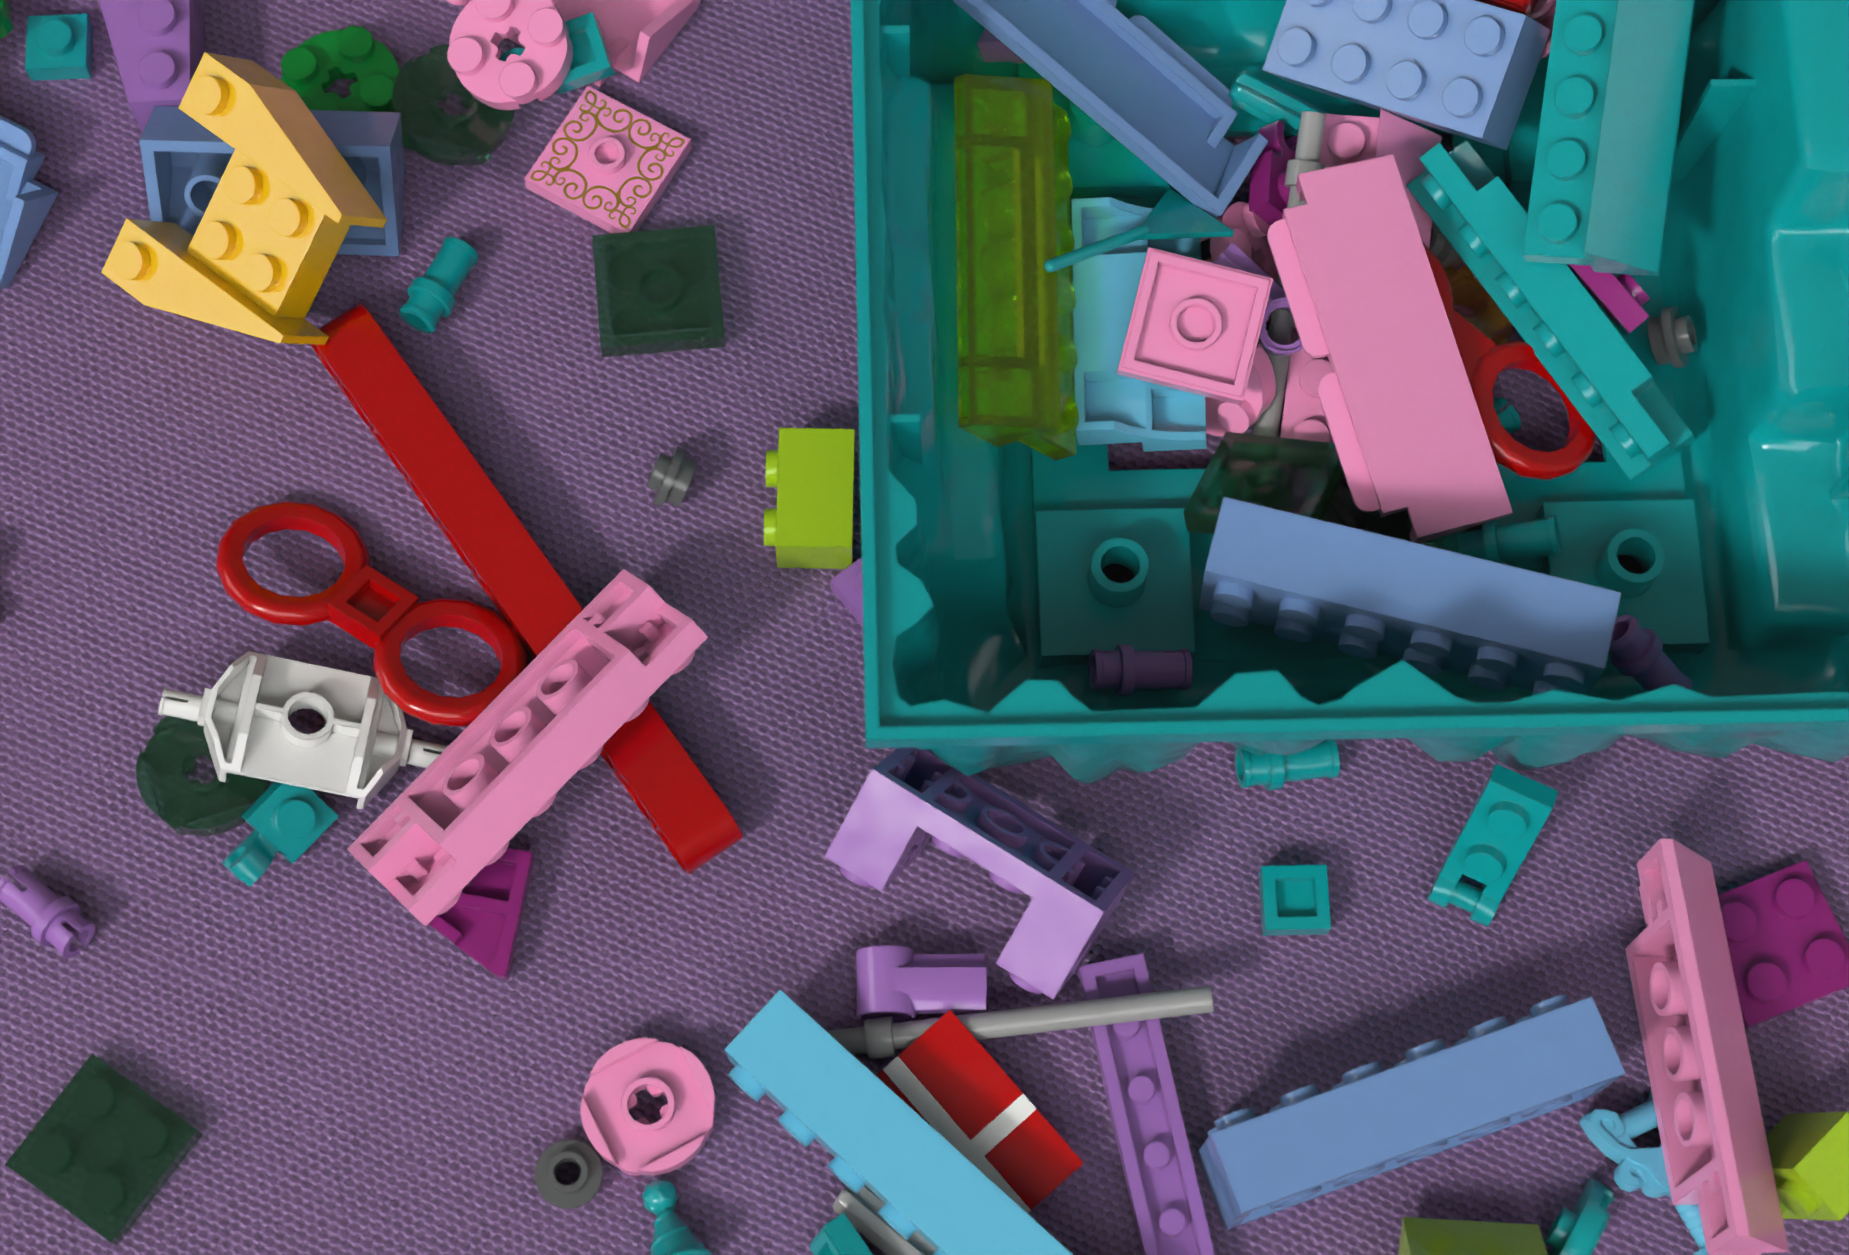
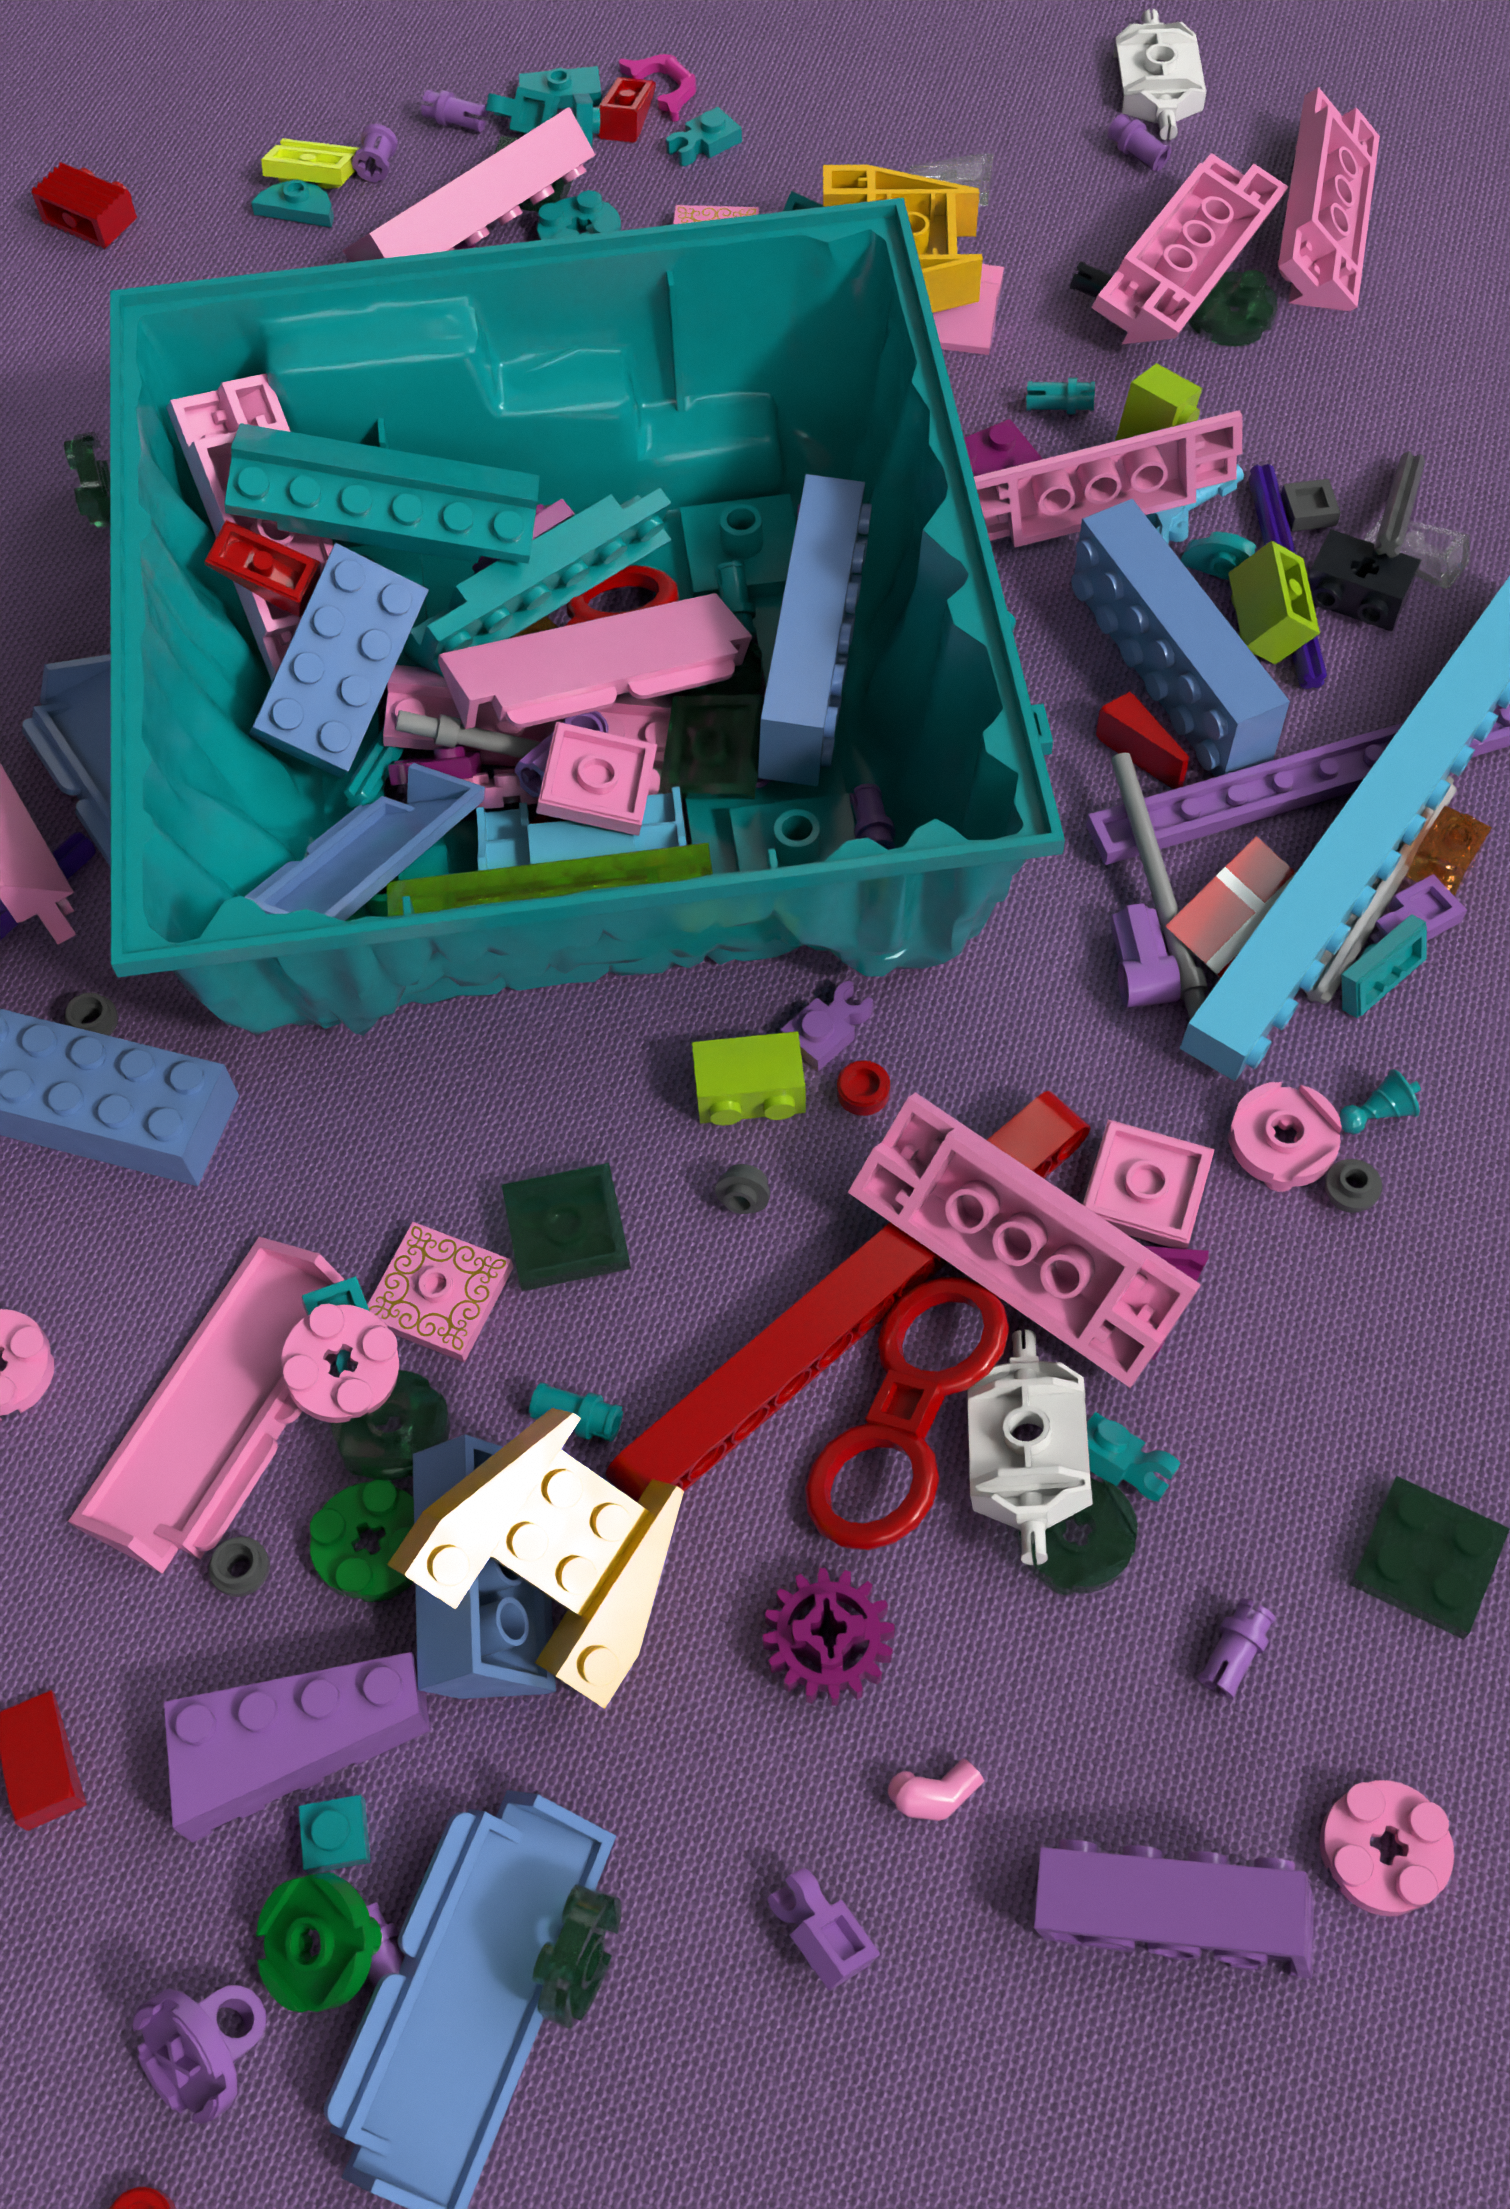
camera: 90 degrees left, 10 degrees down
(124, 482) = (851, 1632): none -> magenta gear
(607, 927) = (1148, 1184): none -> bright pink plate
(794, 631) = (863, 1088): none -> red tile
(1069, 880) = (1021, 955): medium lavender plate -> none
(1170, 219) = (498, 814): teal piece -> none
(1277, 1041) = (1132, 729): none -> red slope

